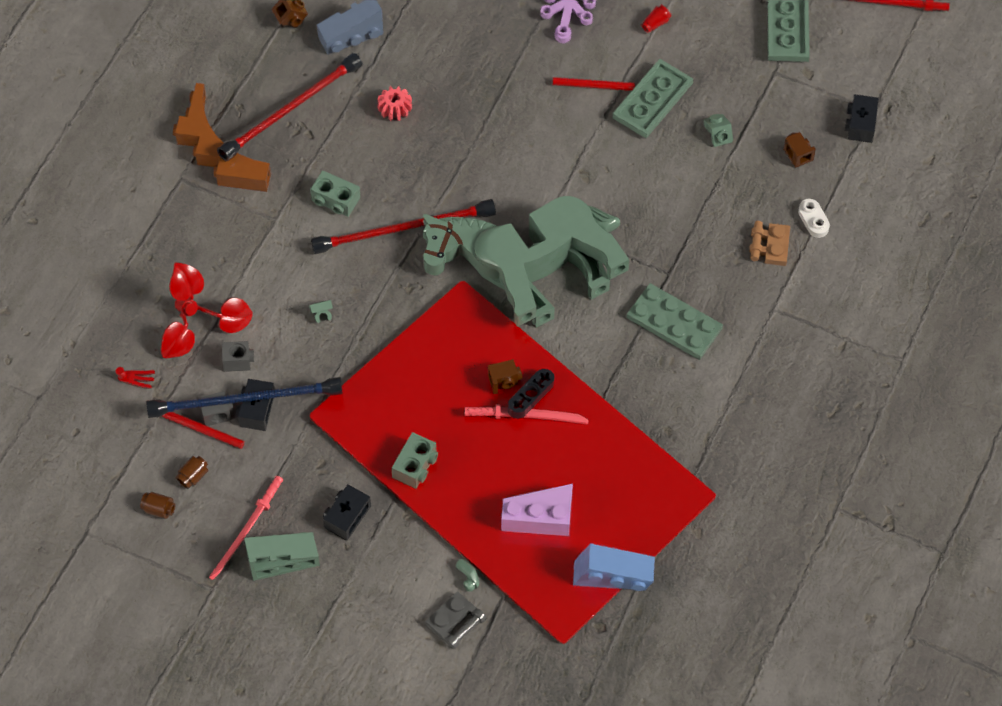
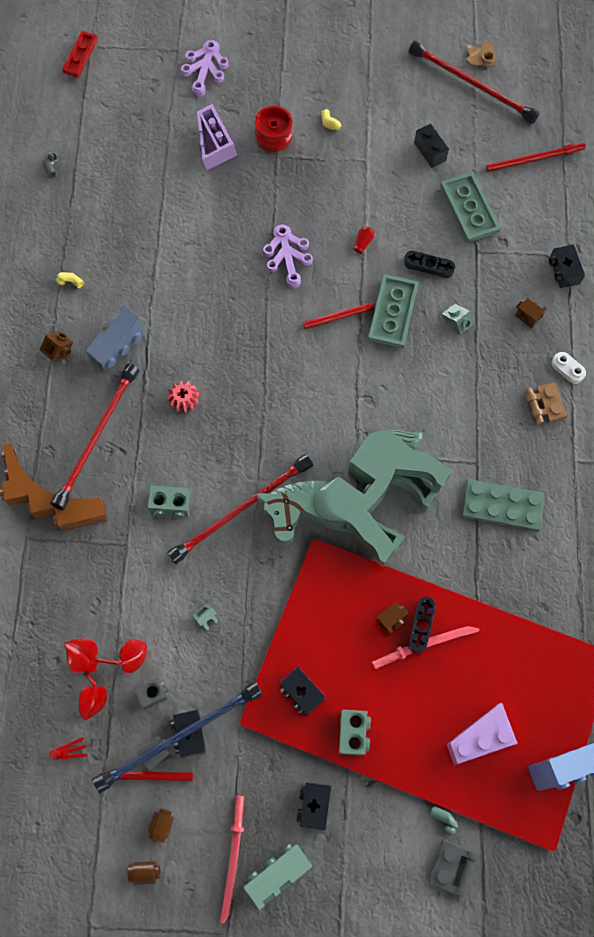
camera: 25 degrees left, 10 degrees up
(382, 395) = (313, 695): none -> black brick
(719, 75) = (423, 268): none -> black beam

